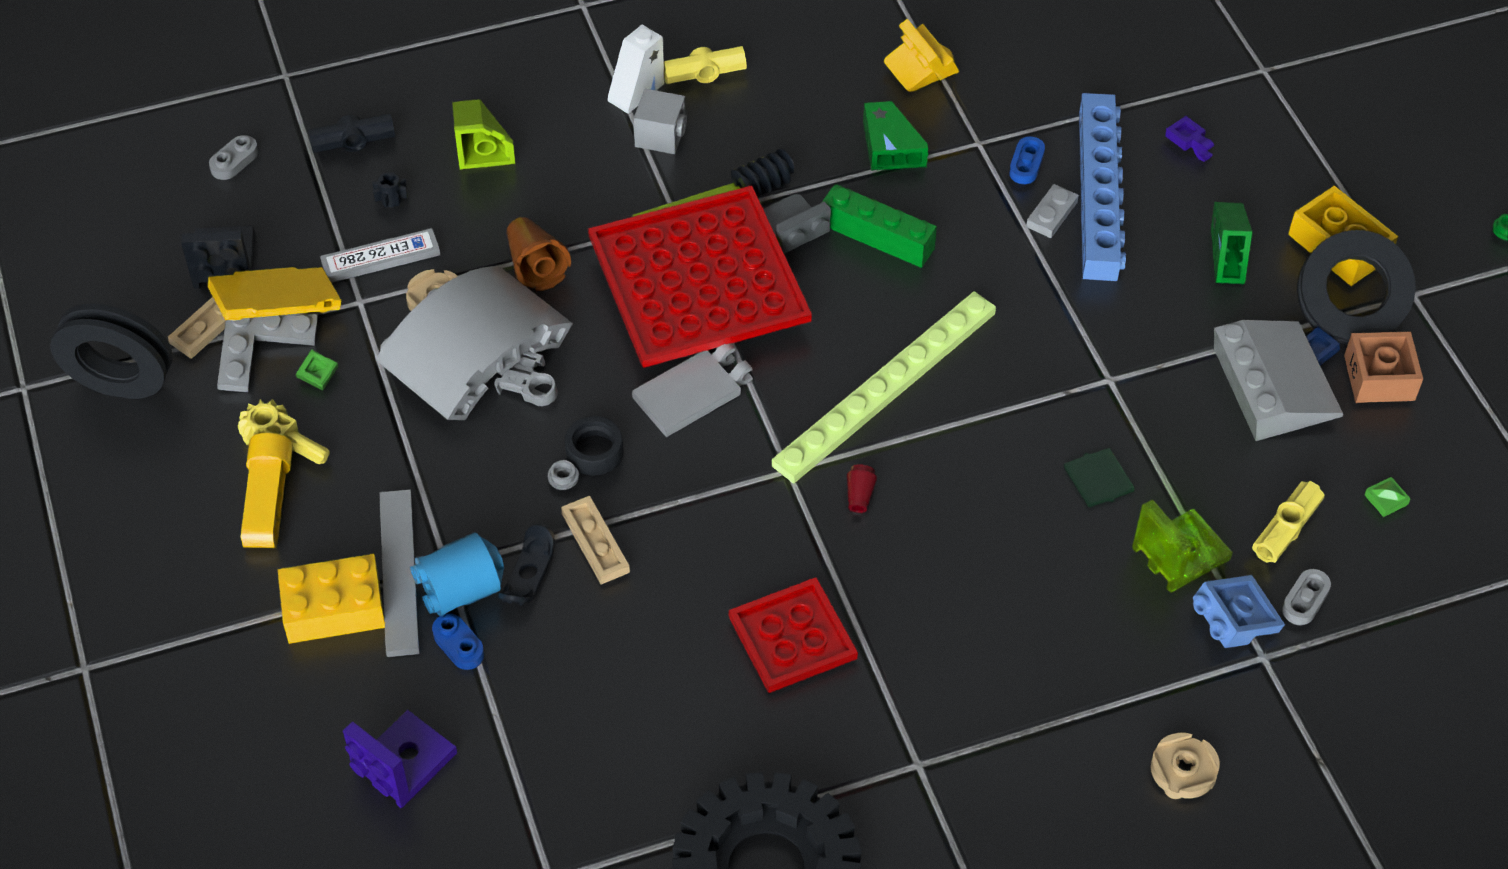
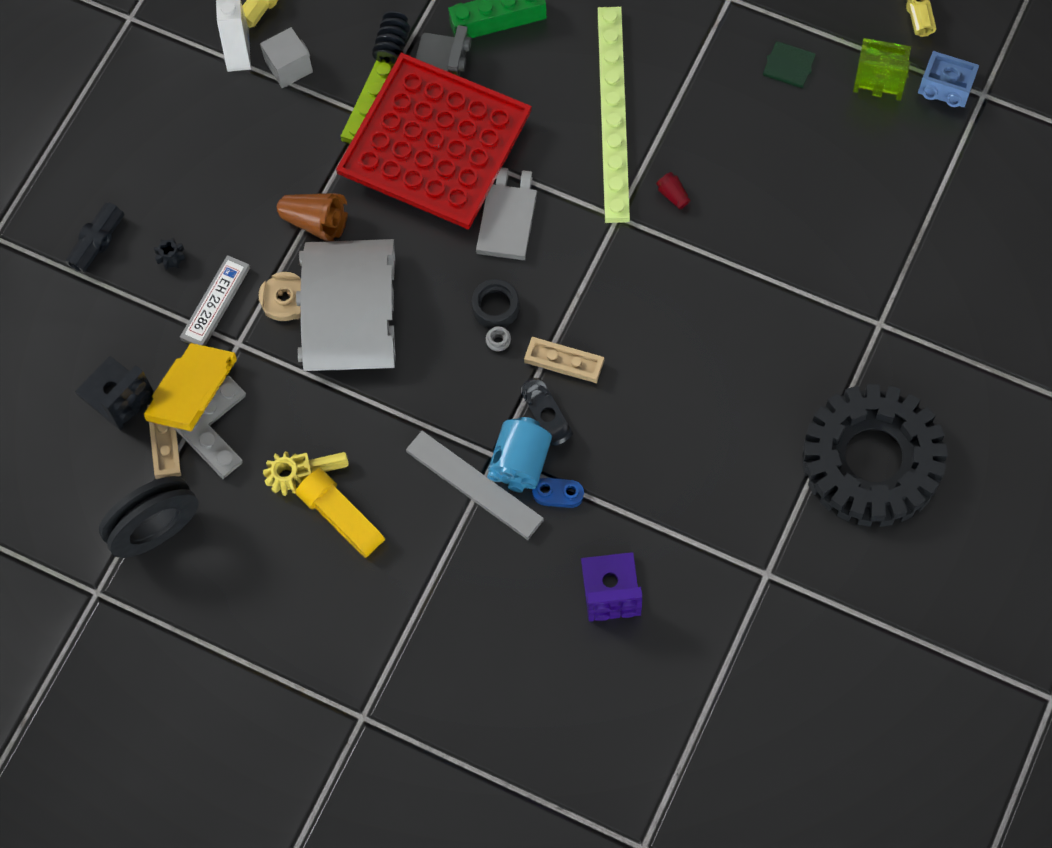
camera: 40 degrees left, 15 degrees up
(233, 157) = (34, 320): light grey plate -> none
(317, 370) = (271, 410): bright green tile -> none
(331, 598) = (460, 537): yellow brick -> none
(480, 137) = (181, 167): lime slope -> none
(523, 373) = (405, 303): light grey piece -> none
(792, 635) = (736, 312): red plate -> none
(1183, 783) = (1010, 207): tan plate -> none
(1306, 599) = (972, 40): light grey plate -> none

